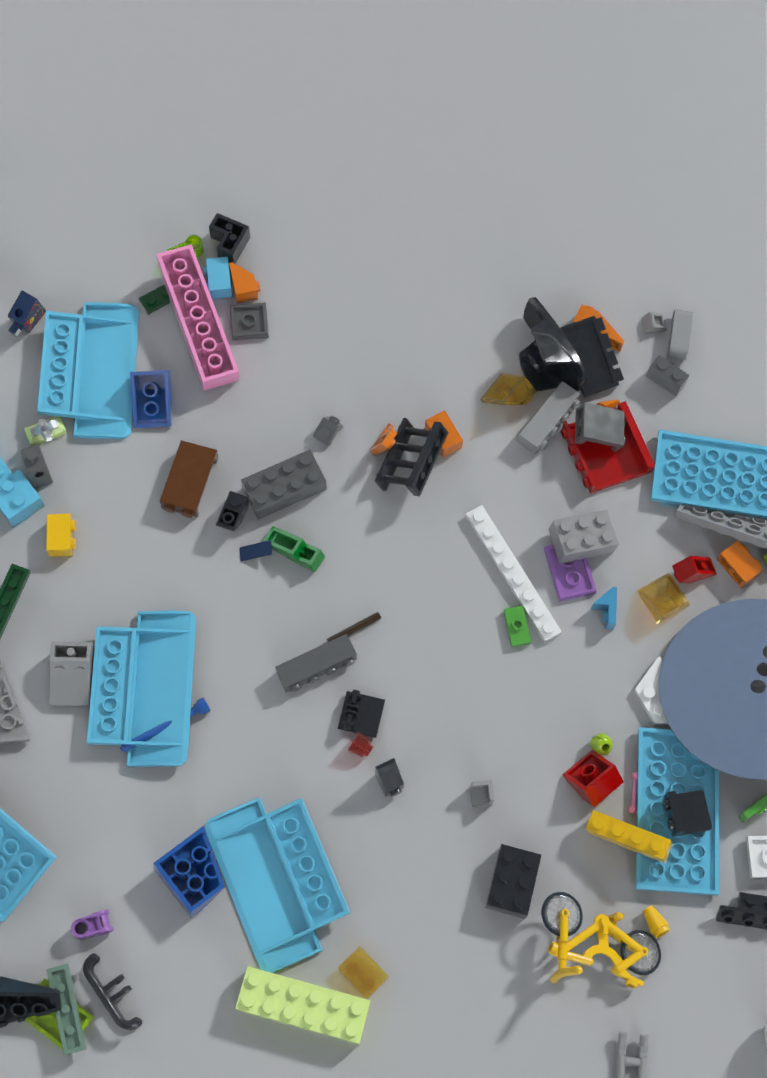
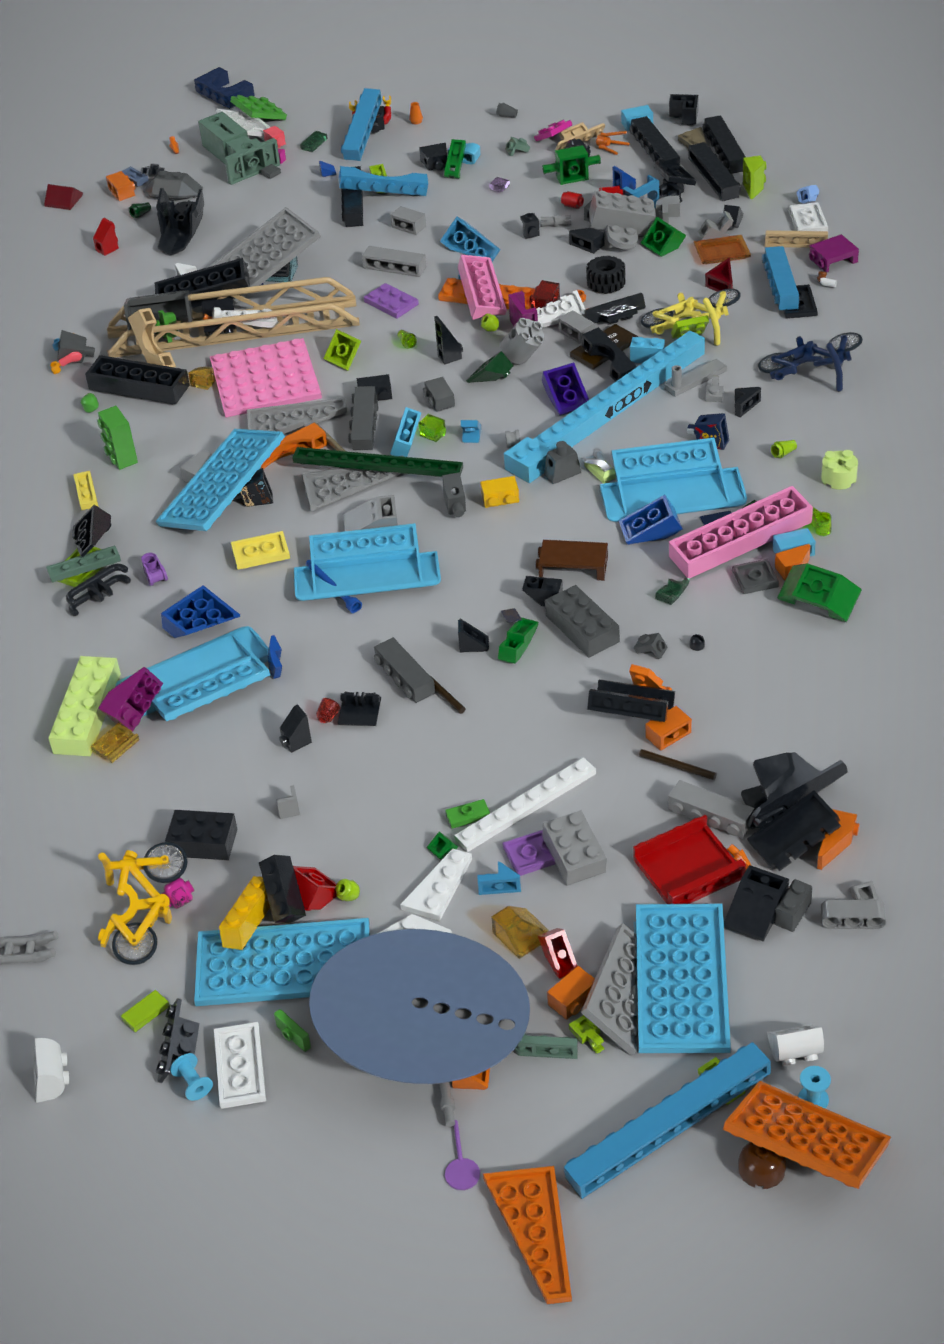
camera: 90 degrees right, 25 degrees down
(61, 581) = (455, 502): none -> dark grey torso
(67, 255) = (782, 448): none -> lime cone
(87, 801) = (260, 550): none -> light yellow plate
(119, 213) = (839, 469): none -> yellowish green brick
(151, 338) = (706, 519): none -> dark blue sticker
(231, 235) = (837, 544): black brick -> none
(252, 398) = (672, 591): none -> clear green slope
(267, 794) = (274, 655): none -> blue slope
(284, 593) = (471, 638): none -> black slope
(294, 272) = (821, 589): none -> green slope
(324, 949) = (131, 698): none -> magenta slope
(332, 392) = (697, 642): none -> black hinge
(484, 437) = (678, 764): none -> dark brown bar
(509, 390) = (731, 774): clear yellow slope -> none
(553, 654) = (441, 845): none -> green slope
(588, 905) = (179, 892): none -> dark pink head
(600, 425) = (706, 843): dark grey panel -> none
(608, 666) = (437, 889): none -> white wing
(608, 800) = (282, 889): none -> black brick
(657, 924) = (165, 953): yellow cone -> none
(663, 402) = (755, 903): none -> black slope
(686, 812) = (275, 955): black bracket -> none
(718, 944) = (145, 1011): none -> lime tile

